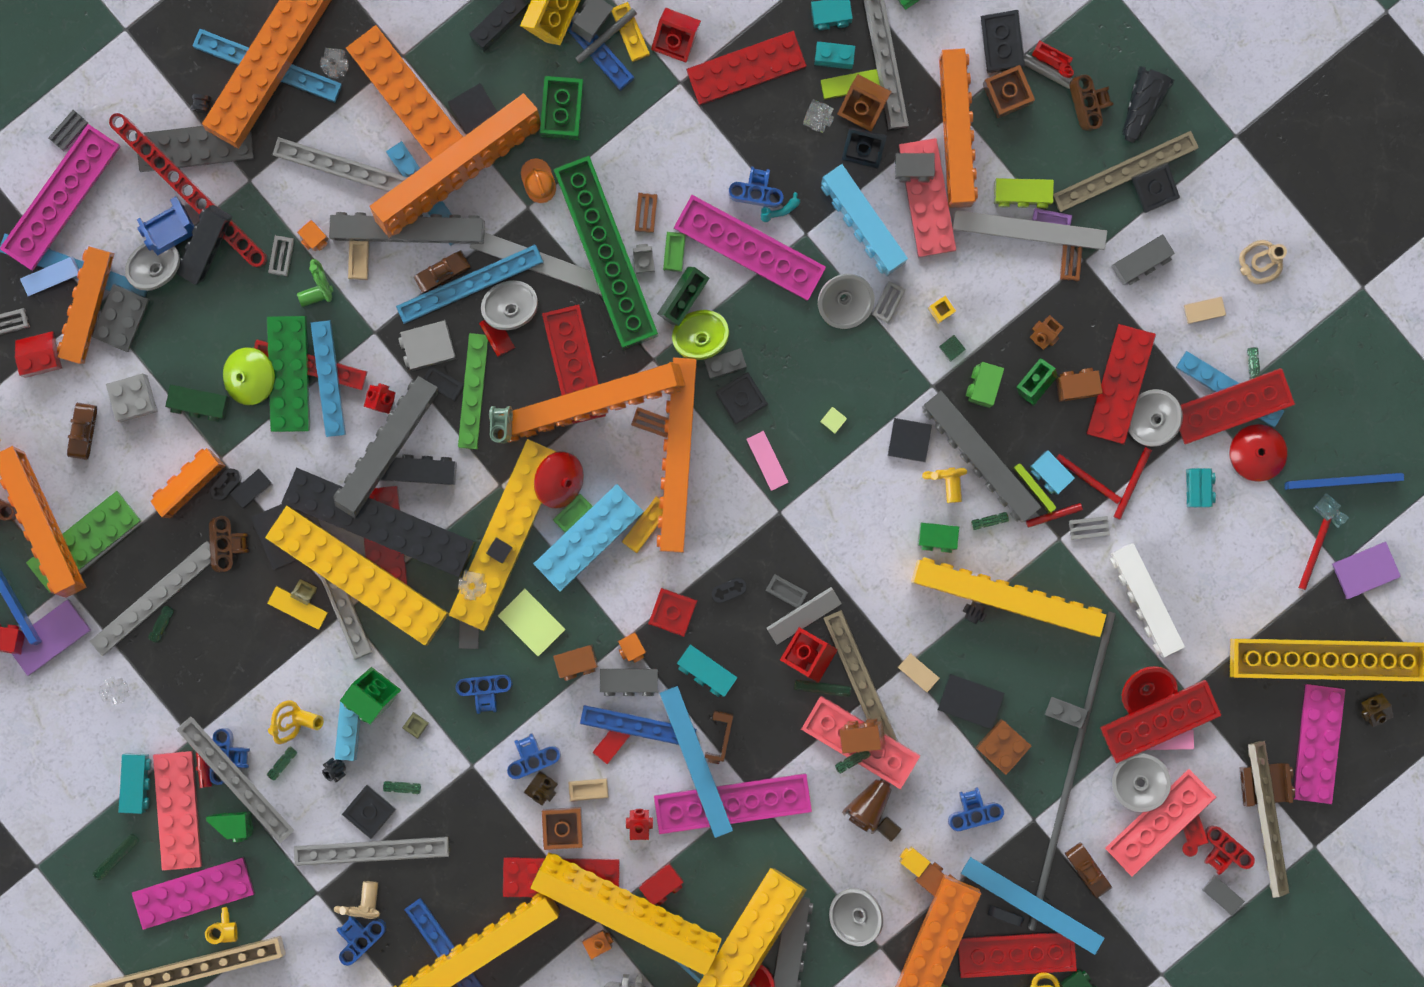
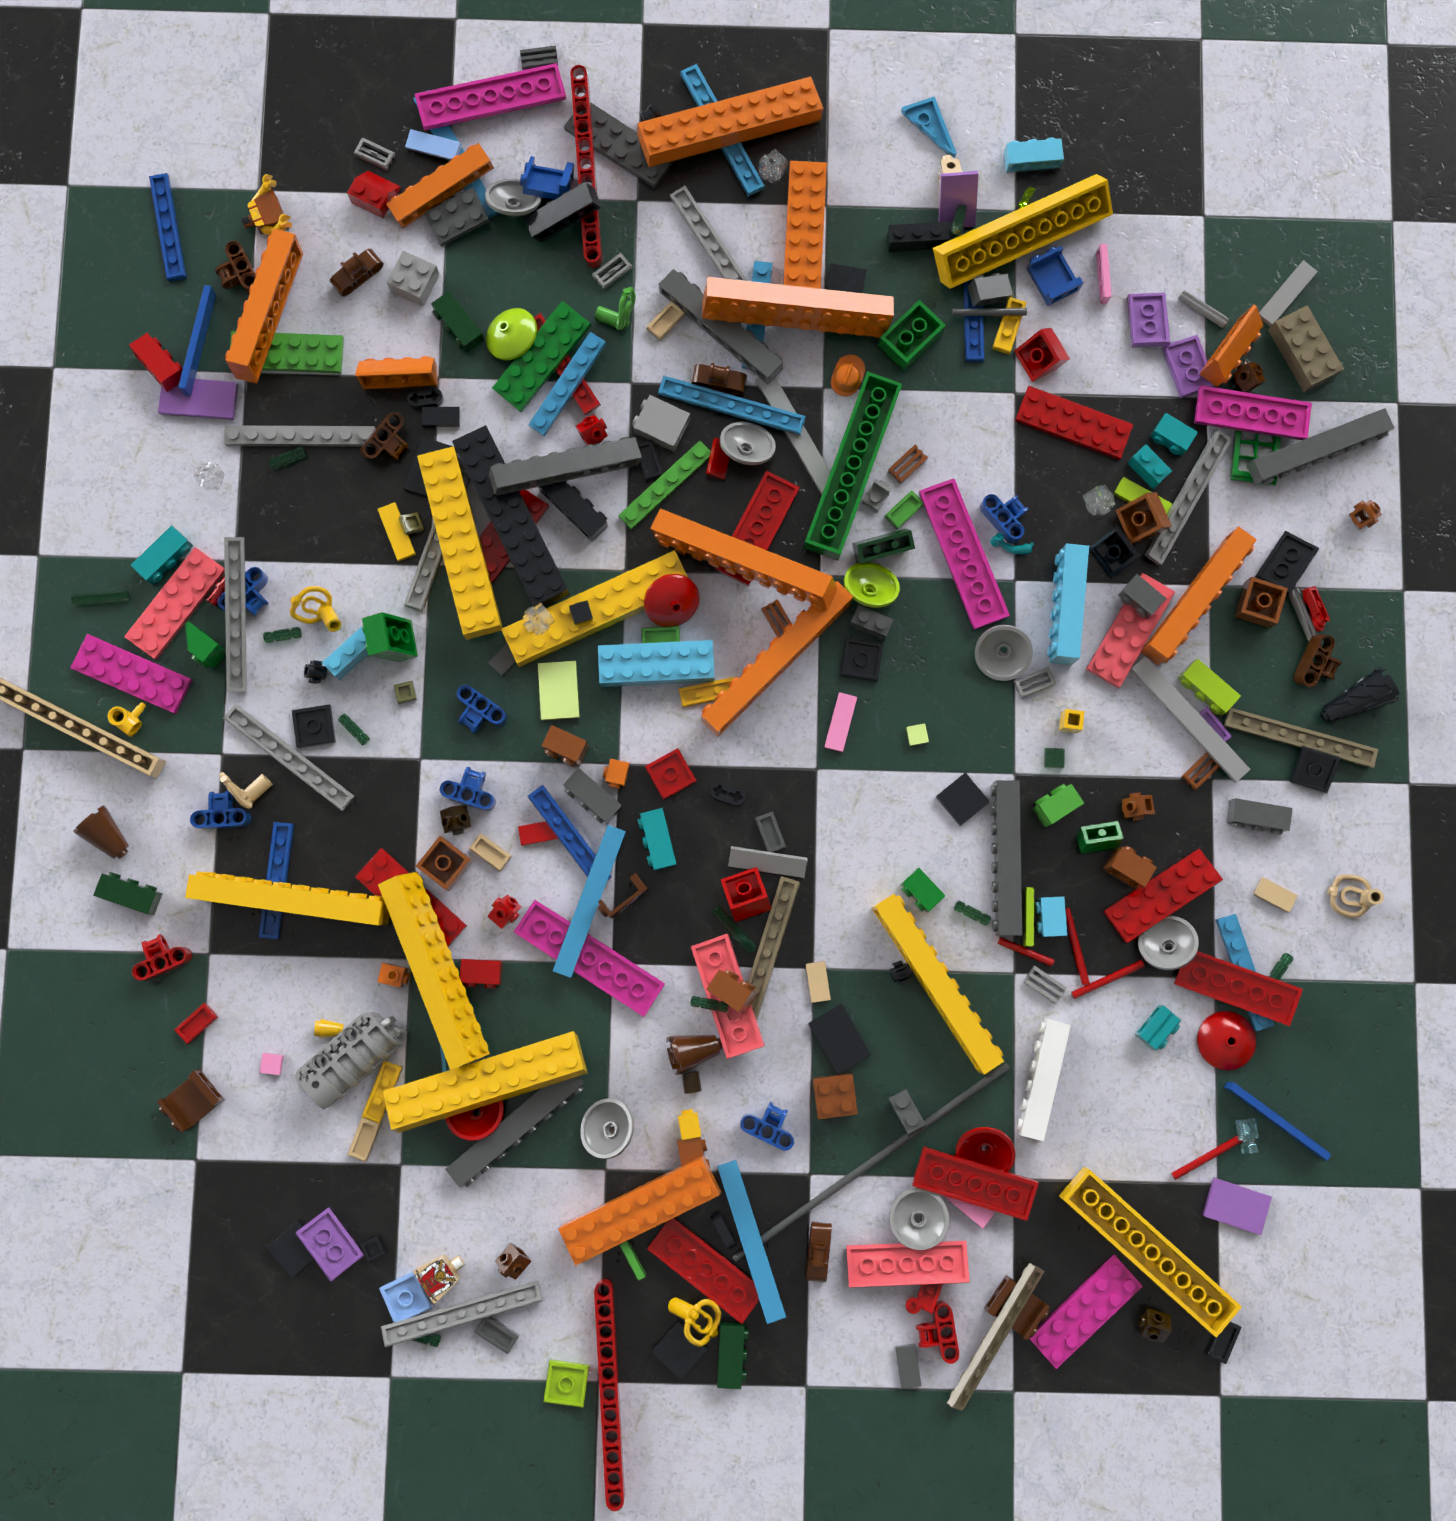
camera: 40 degrees right, 5 degrees down
(313, 236) = (647, 275): orange brick -> none
(500, 422) = (667, 516): sand green piece -> none
(952, 482) = (969, 857): yellow piece -> none

